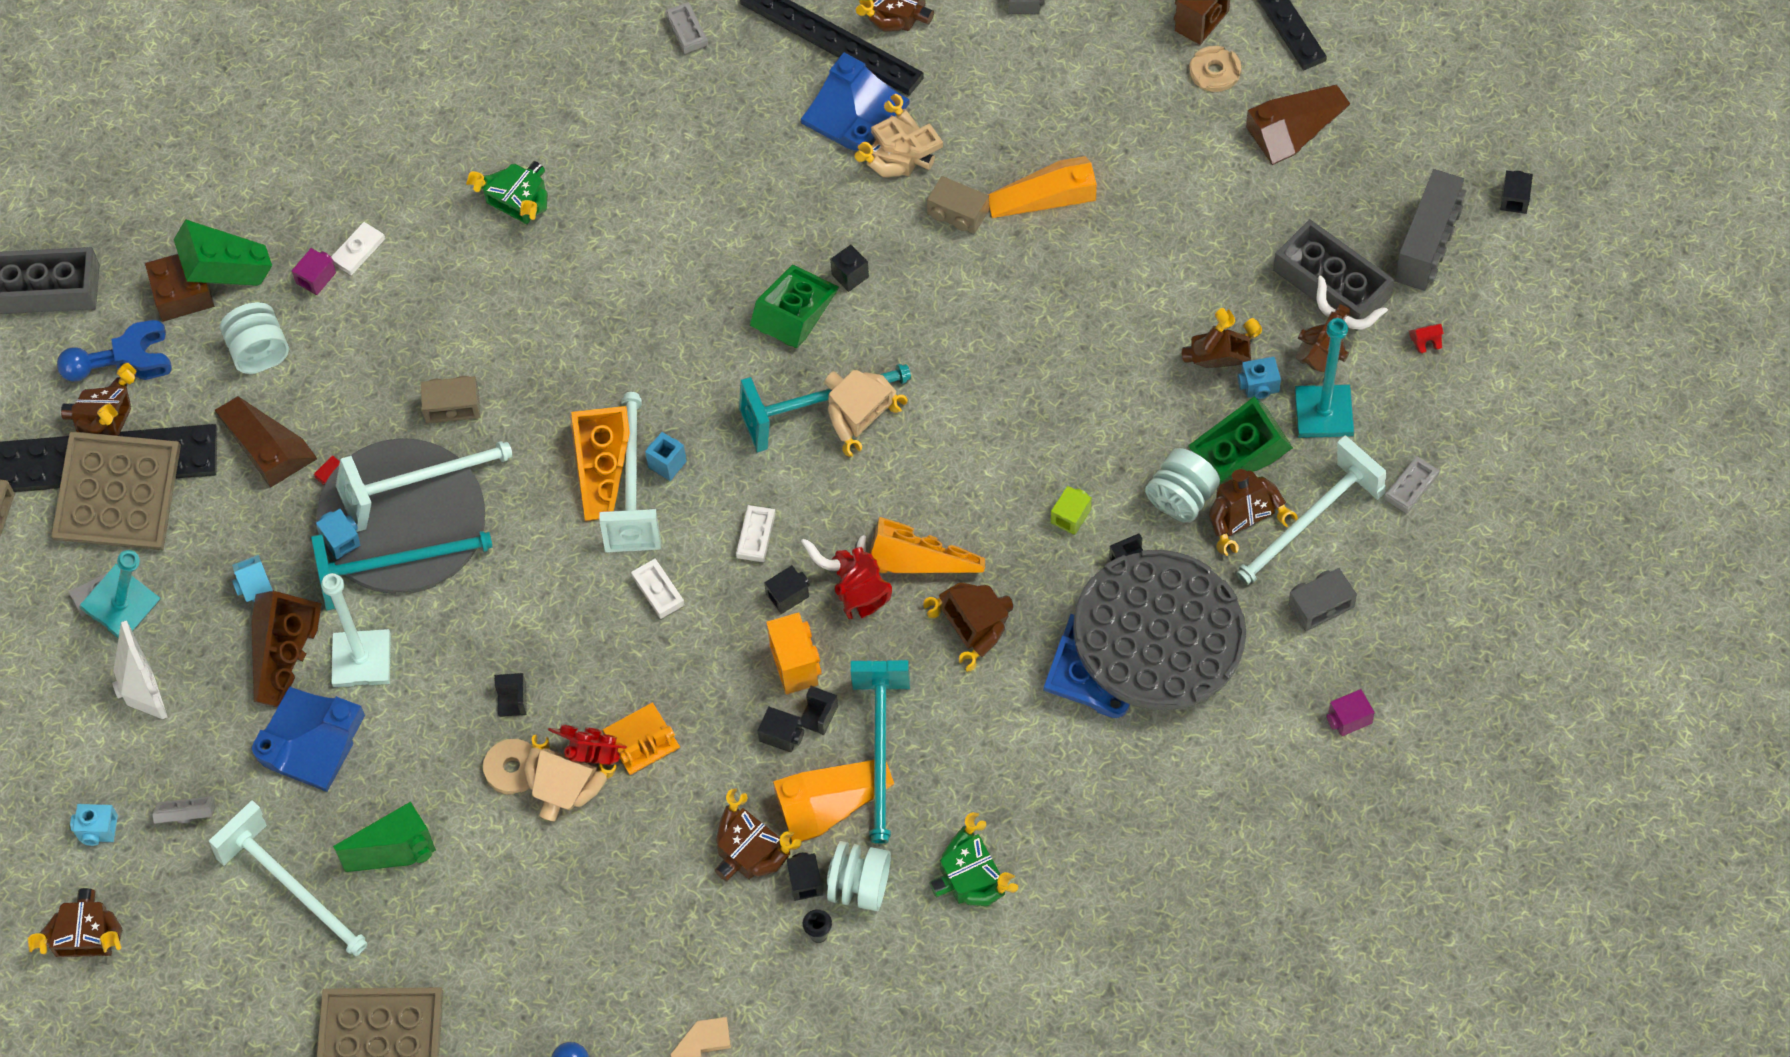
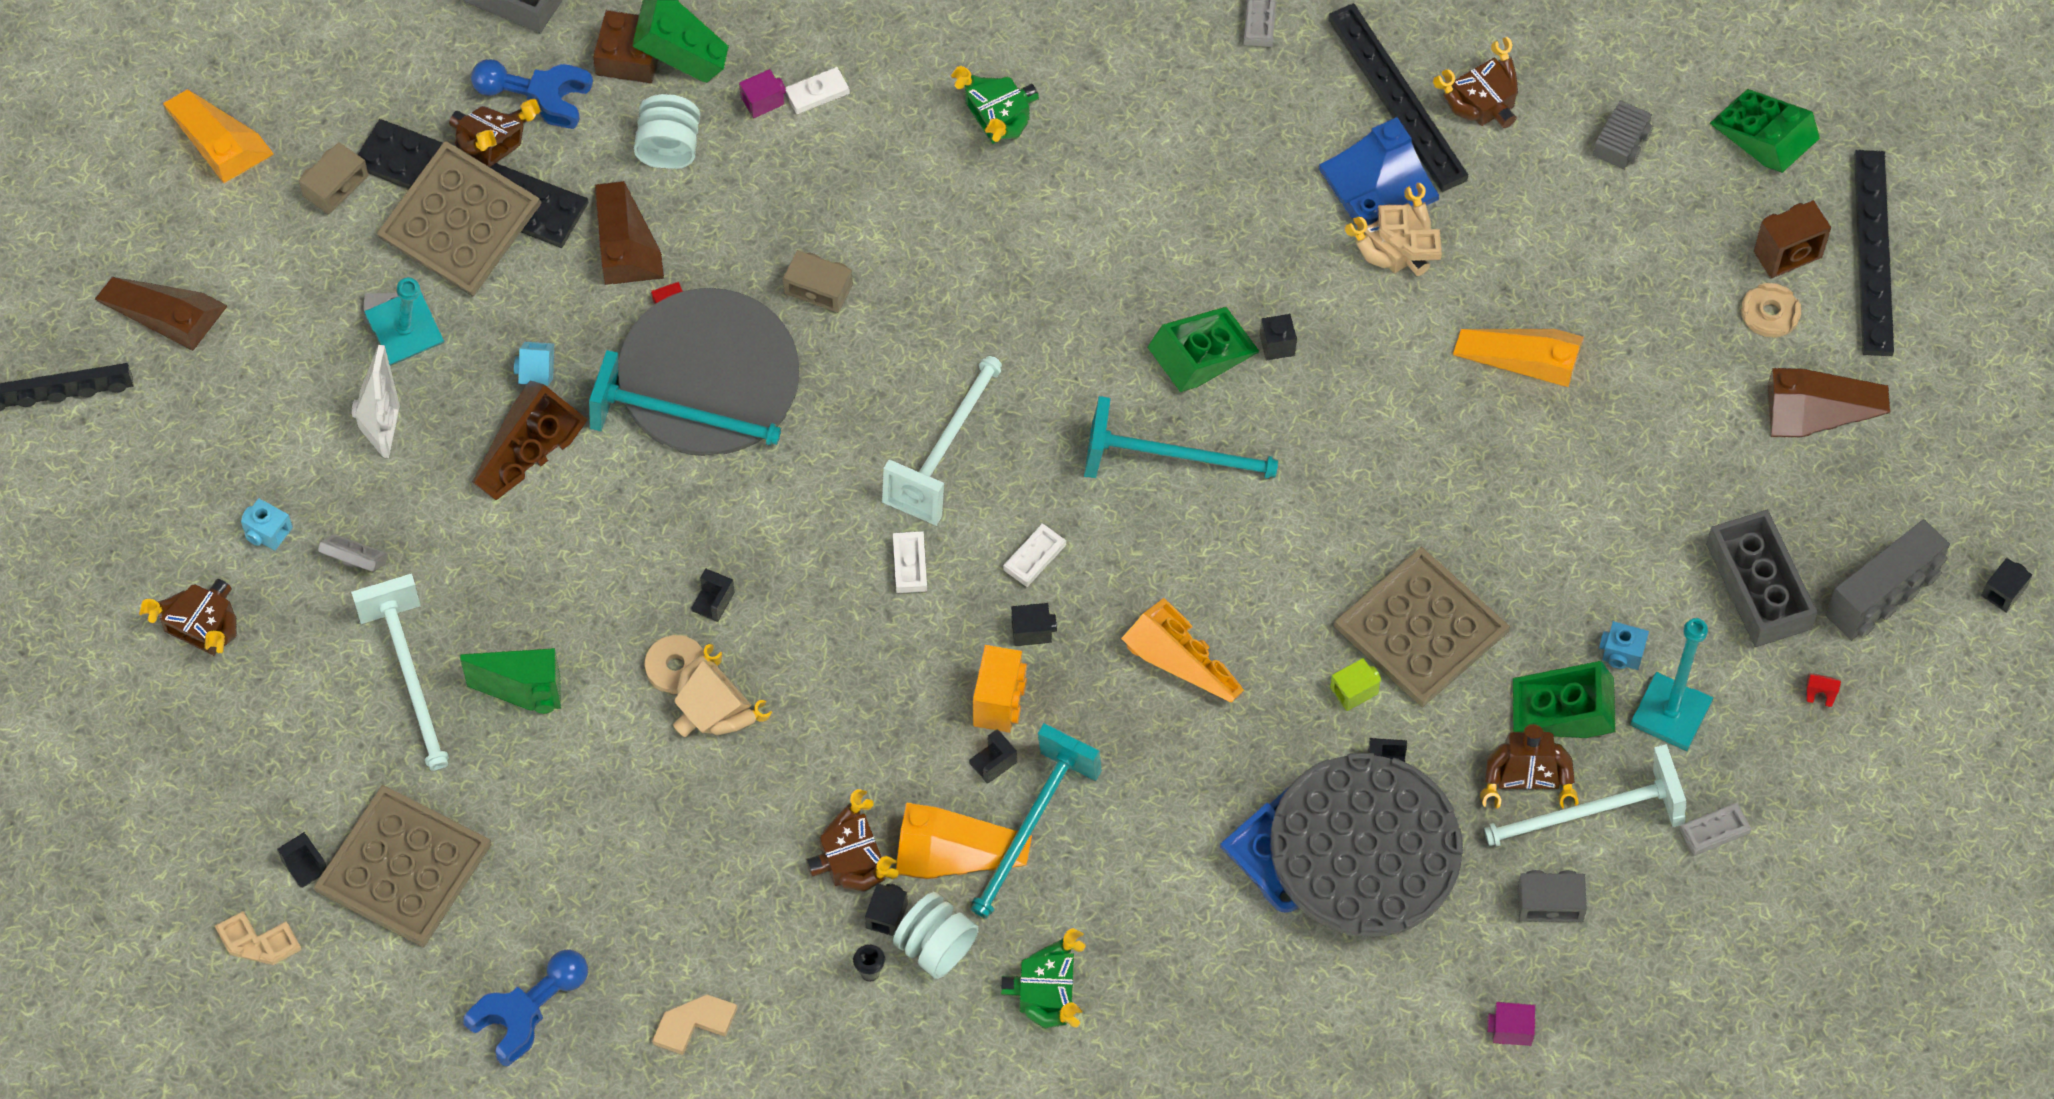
camera: 25 degrees right, 0 degrees up
(309, 737) = (504, 542): blue slope -> none
(338, 533) = (636, 359): dark azure brick -> none
(356, 494) = (673, 329): light aqua tile -> none
(356, 655) = (593, 486): light aqua tile -> none
(589, 745) = (753, 679): red hinge -> none
(599, 451) = (929, 402): light orange wedge -> none
(645, 737) = (811, 699): light orange hinge -> none
(665, 456) = (990, 436): dark azure brick -> none
(780, 729) = (946, 757): black brick -> none
(858, 402) = (1205, 474): tan torso -> none
(860, 578) = (1104, 651): red helmet -> none
(957, 205) = (1422, 325): dark tan brick -> none
(975, 616) = (1197, 741): reddish brown torso -> none
(1095, 440) = (1421, 626): none -> dark tan plate
(1182, 485) = (1478, 714): light aqua wheel -> none
(1222, 346) = (1602, 597): reddish brown torso -> none
(1315, 339) = (1716, 646): reddish brown helmet -> none

